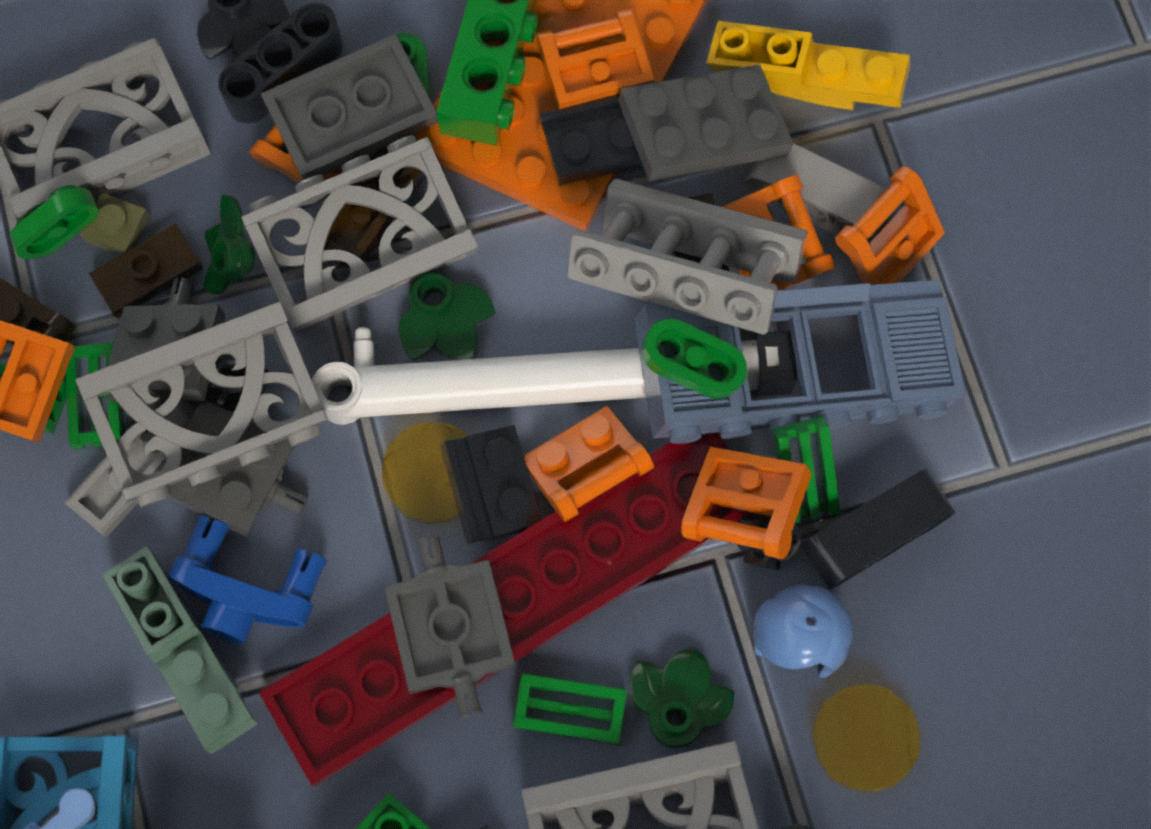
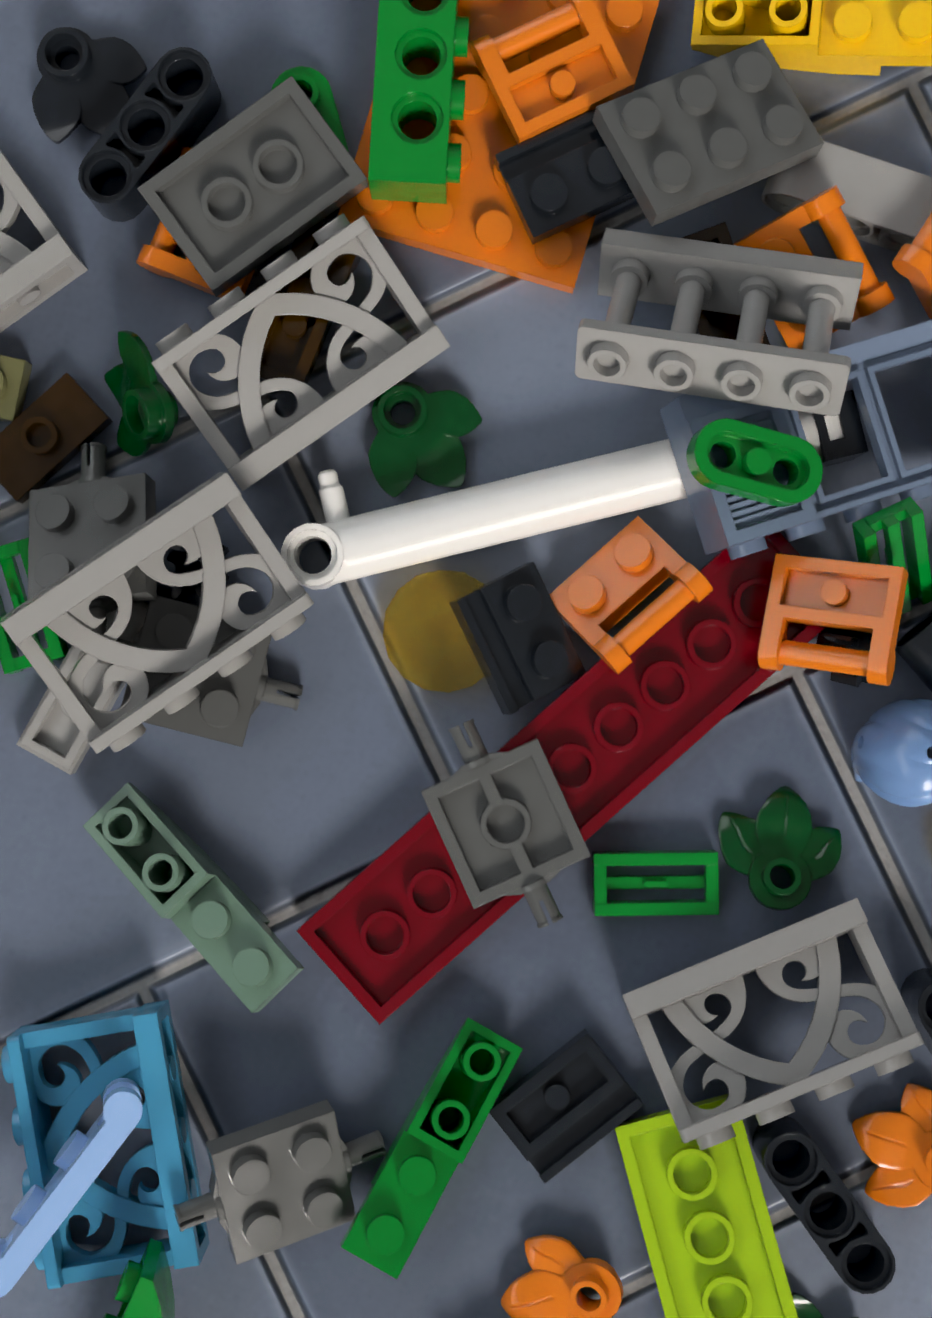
camera: 15 degrees left, 15 degrees up
(236, 603) = (246, 834): blue connector -> none

